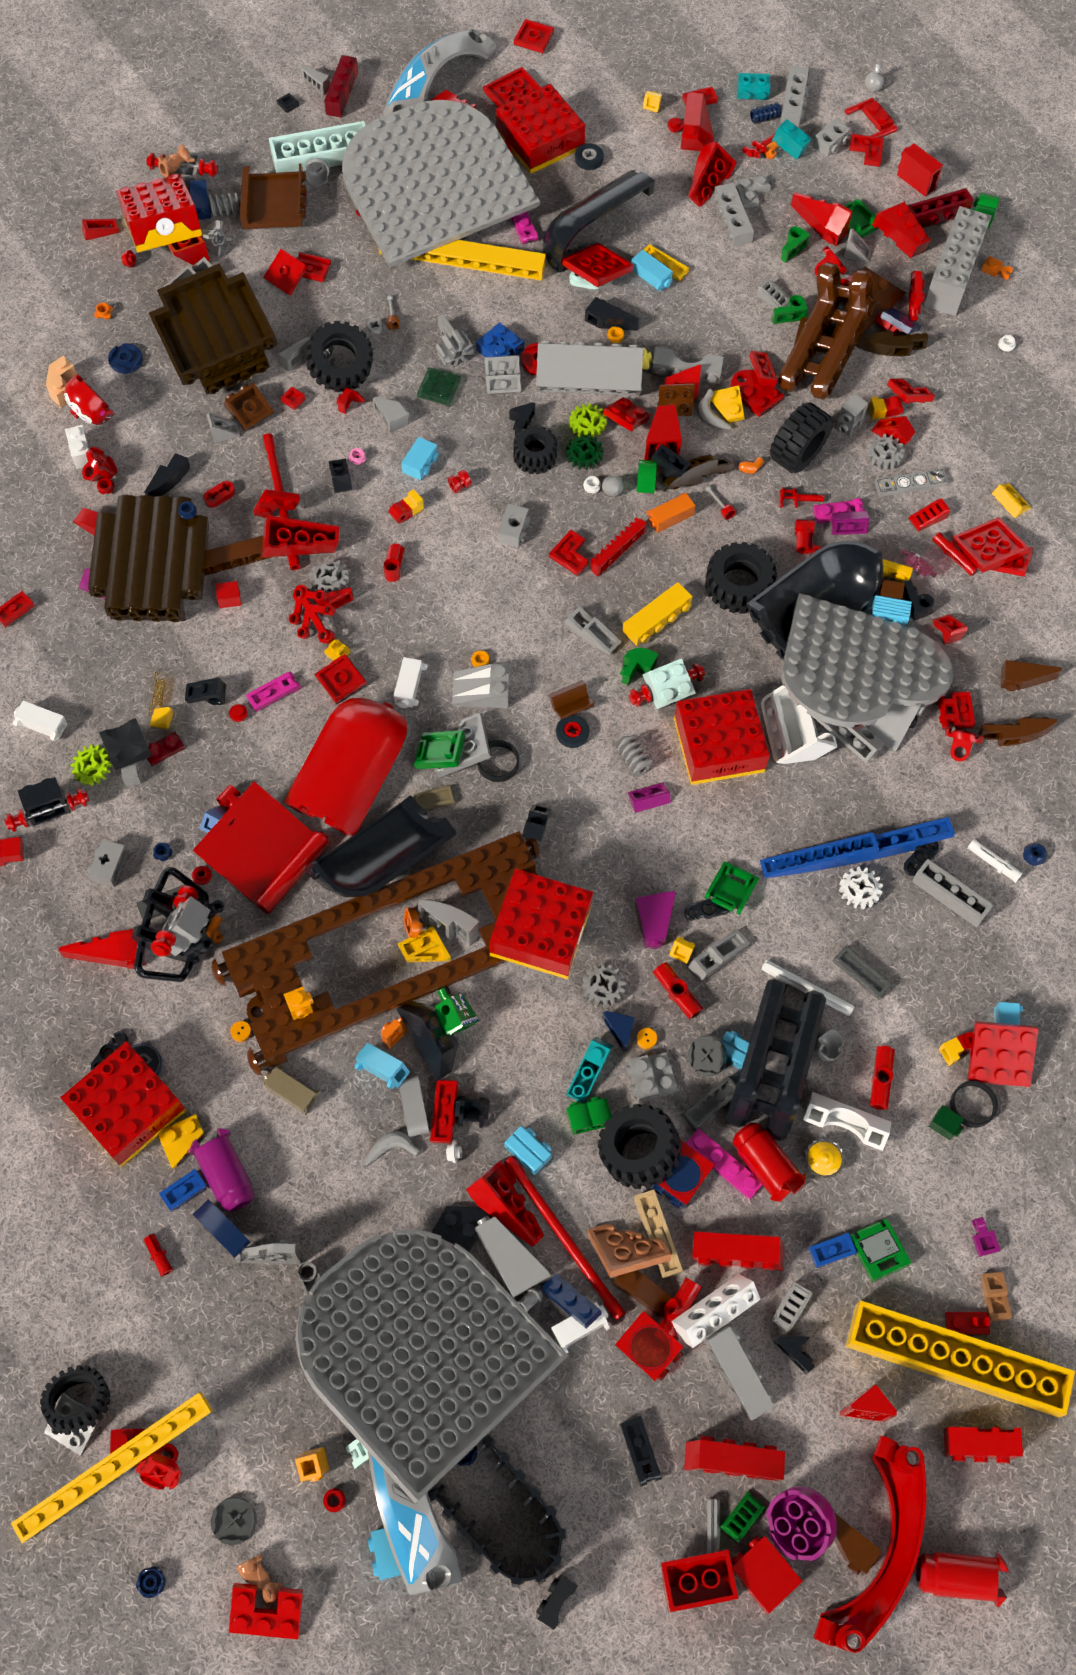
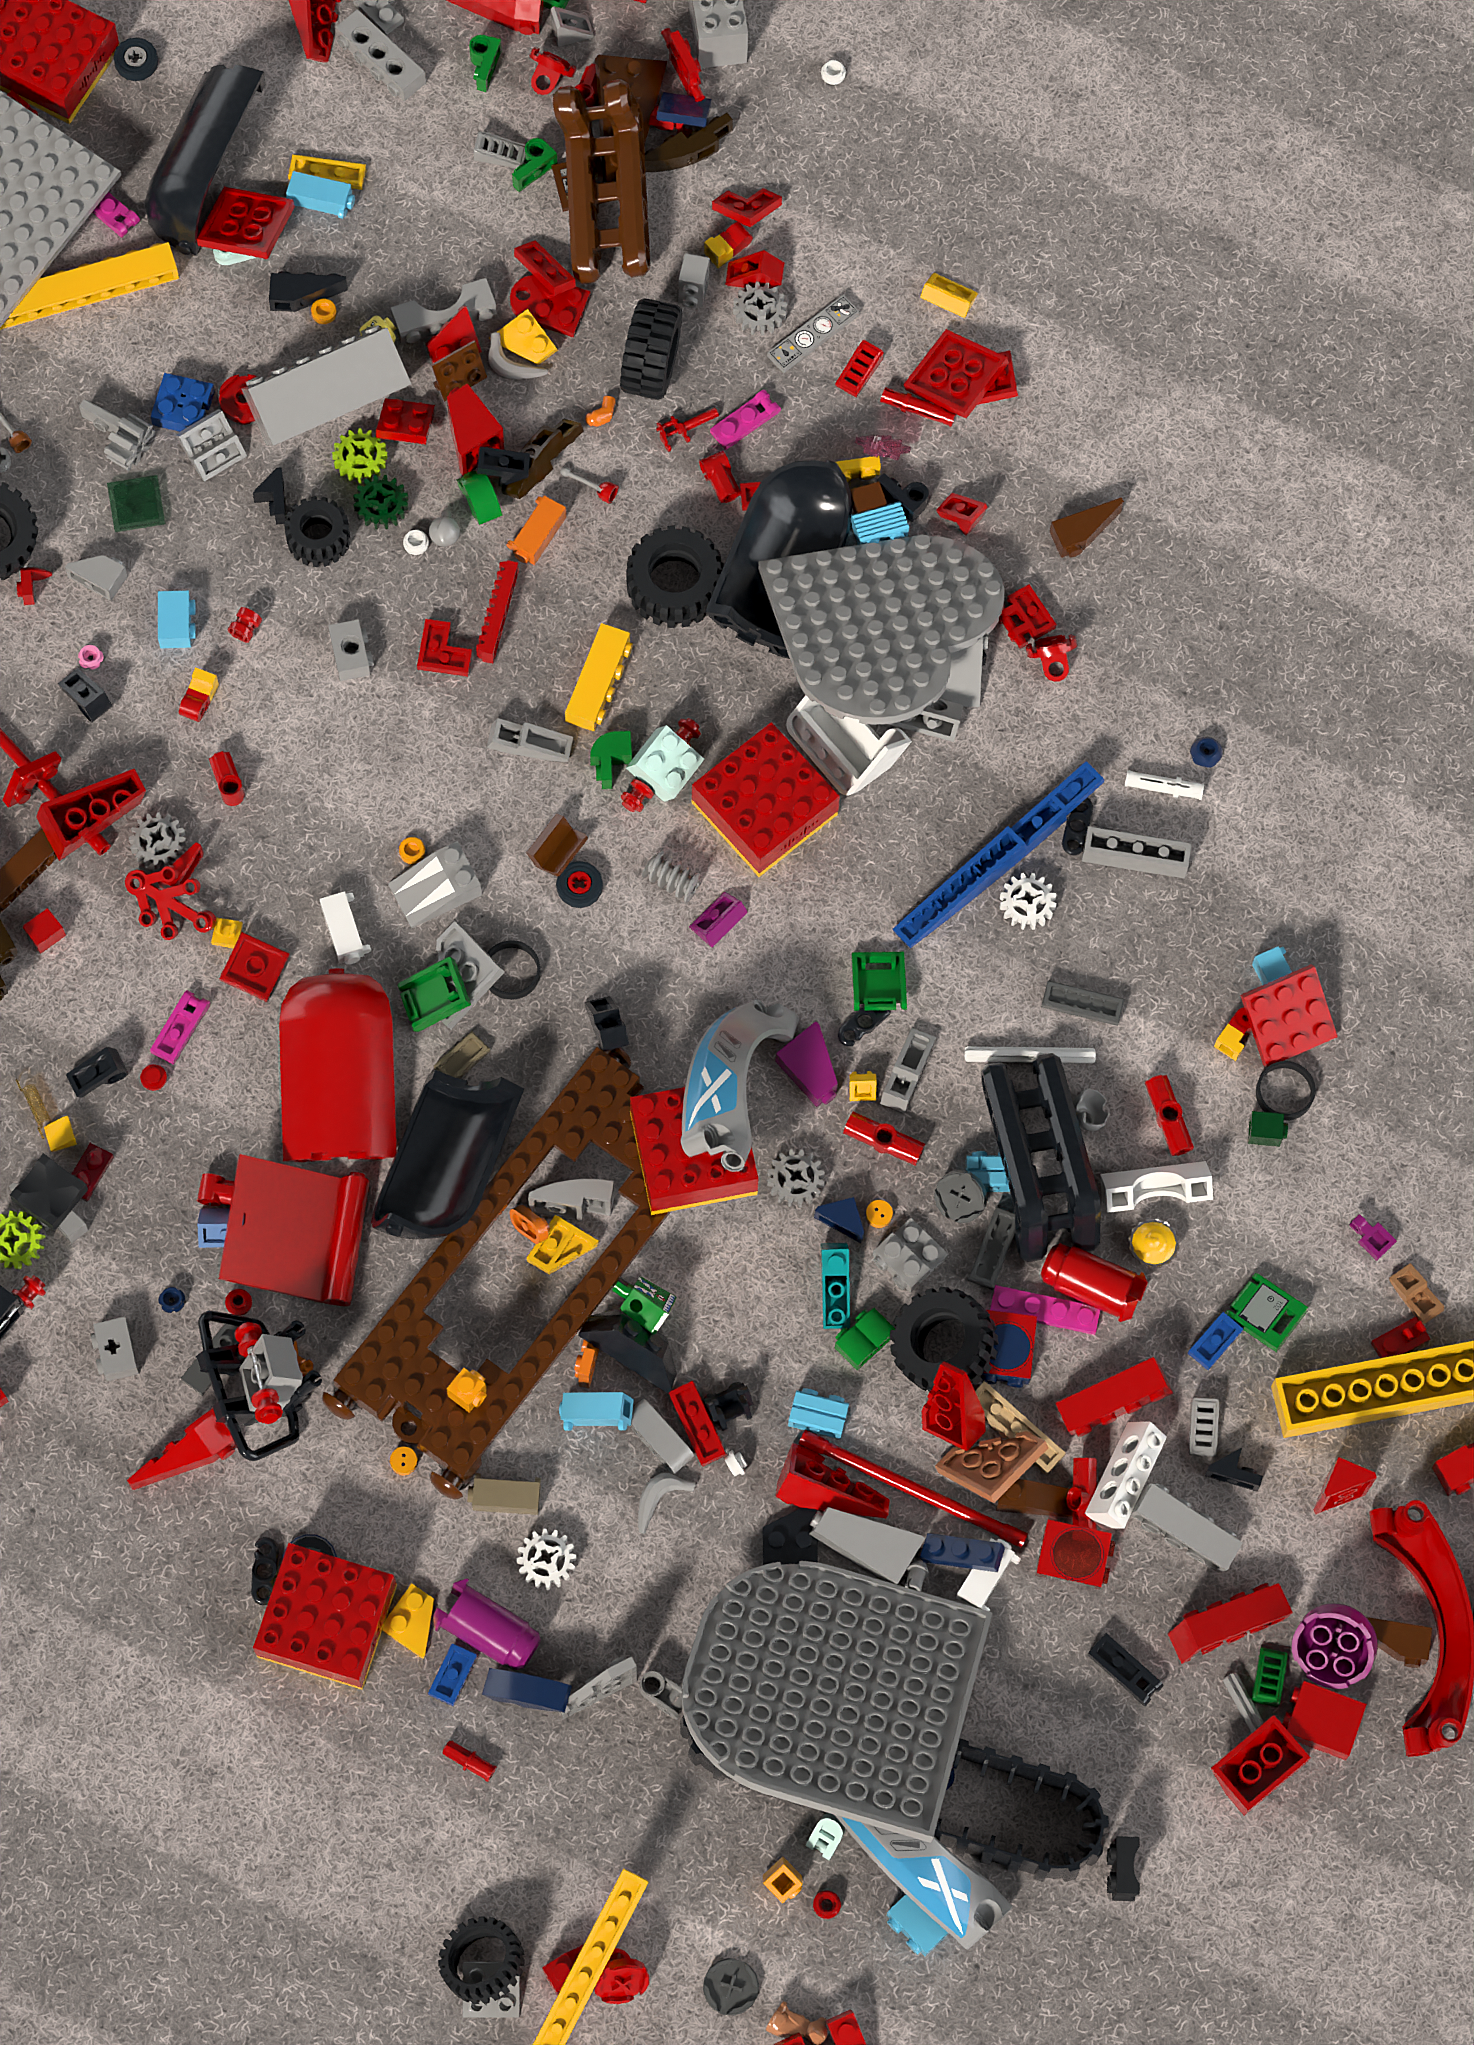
camera: 30 degrees left, 5 degrees up
(281, 1146) = (556, 1553): none -> white gear
(573, 892) = (715, 1087): none -> light grey panel
(620, 1196) = (953, 1408): none -> red wedge
(850, 523) = (767, 430): magenta slope -> none
(1024, 731) = (1117, 602): reddish brown slope -> none

